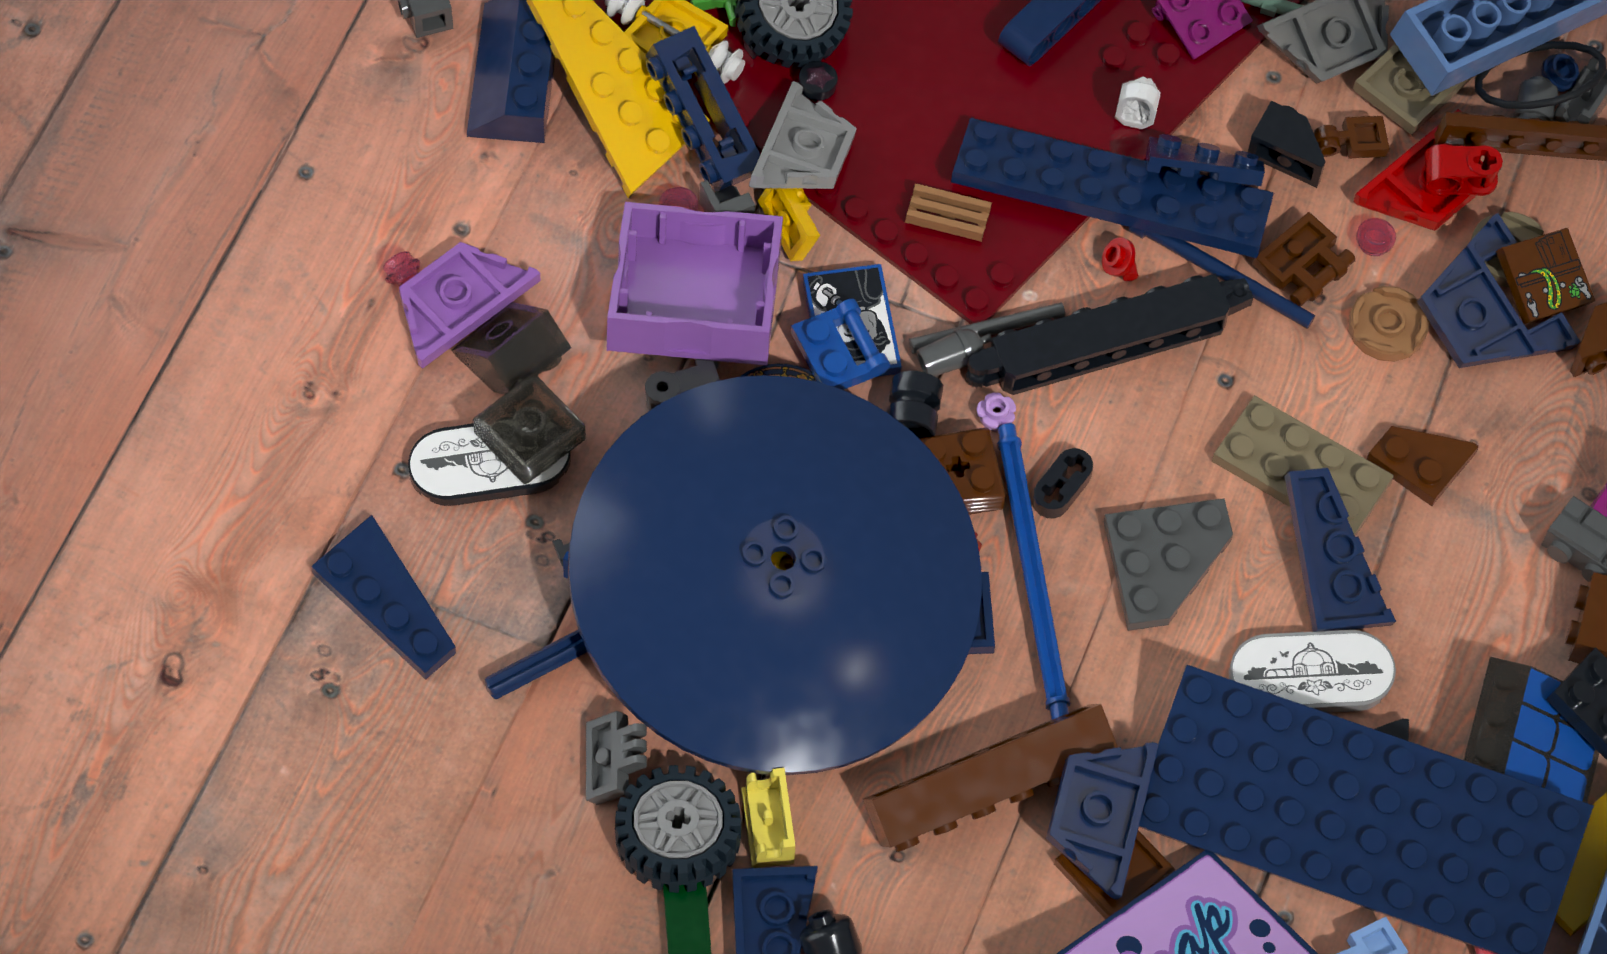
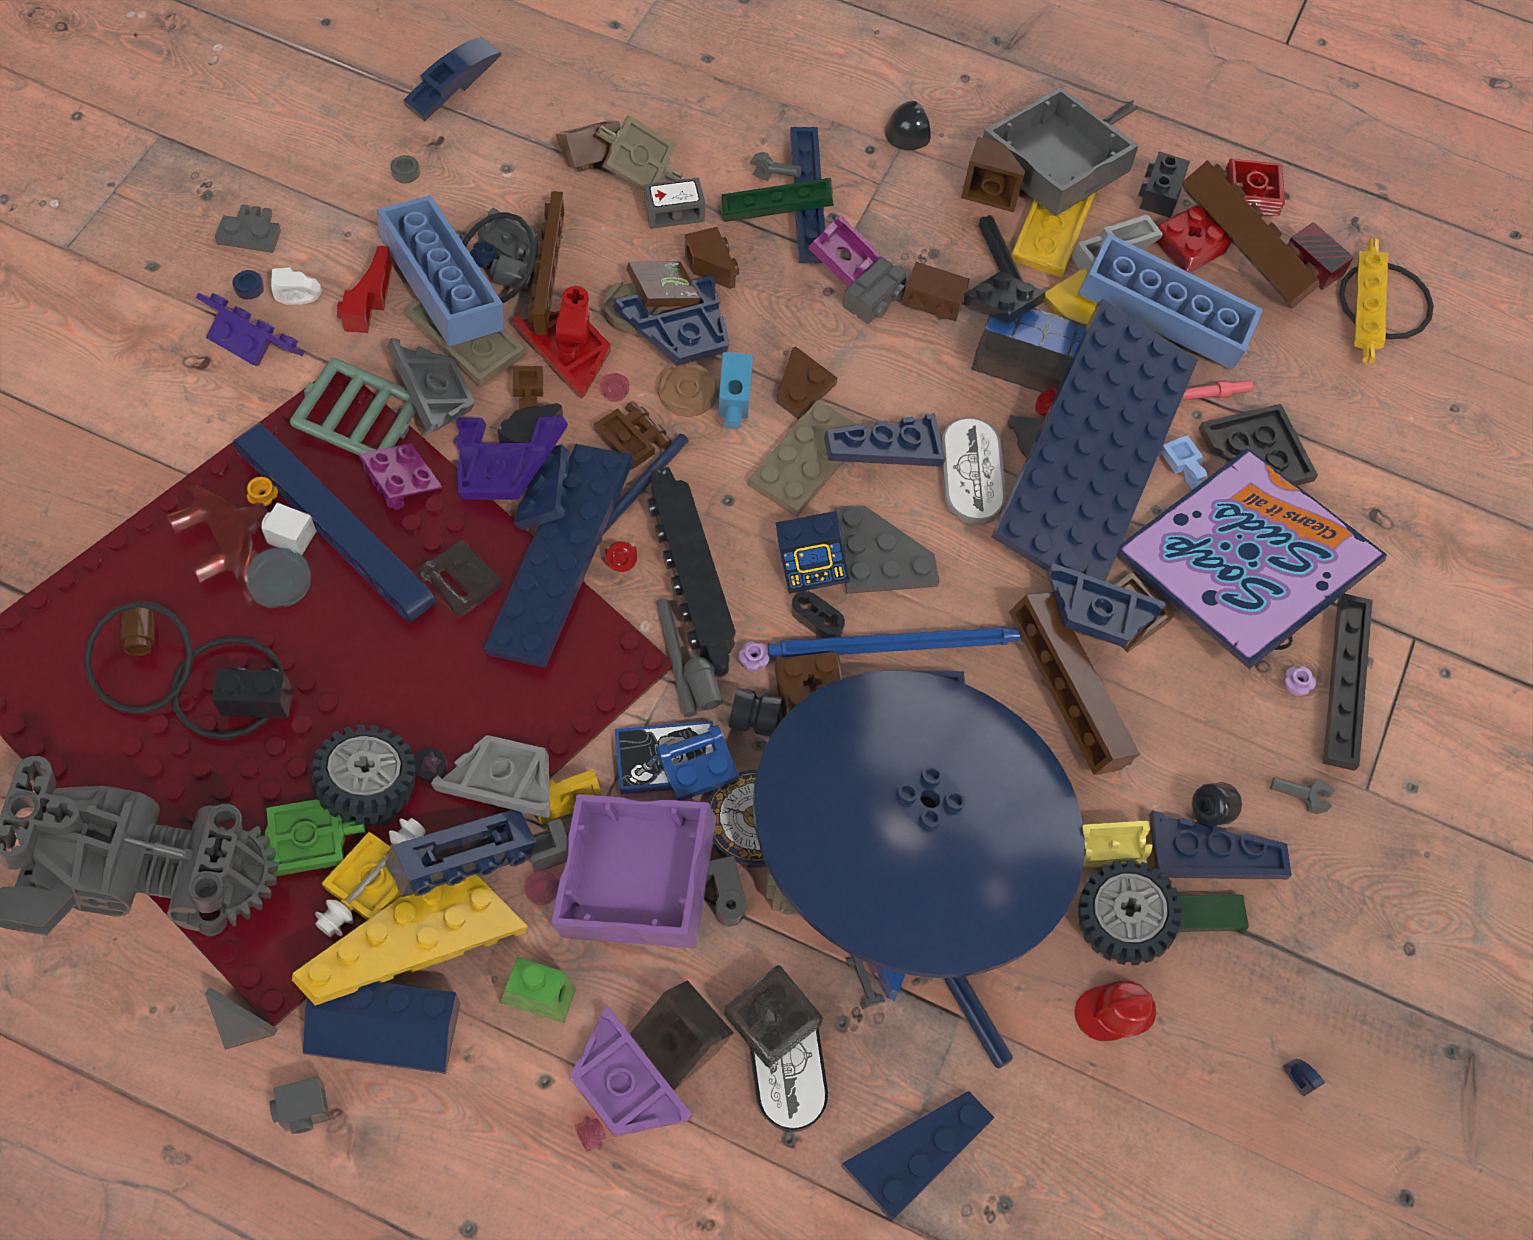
camera: 90 degrees left, 0 degrees up
(557, 191) = (537, 990): none -> bright green torso
(559, 821) = (1115, 1011): none -> red piece
(612, 755) = (1068, 961): dark grey hinge -> none
(949, 207) = (579, 651): medium nougat tile -> none
(1074, 96) = (467, 571): none -> clear smoke plate
(1138, 103) = (485, 524): white rock -> none
(1148, 466) = (813, 552): none -> slope
(1222, 106) = (502, 469): none -> dark purple wing
(1384, 367) = (735, 388): none -> dark azure torso

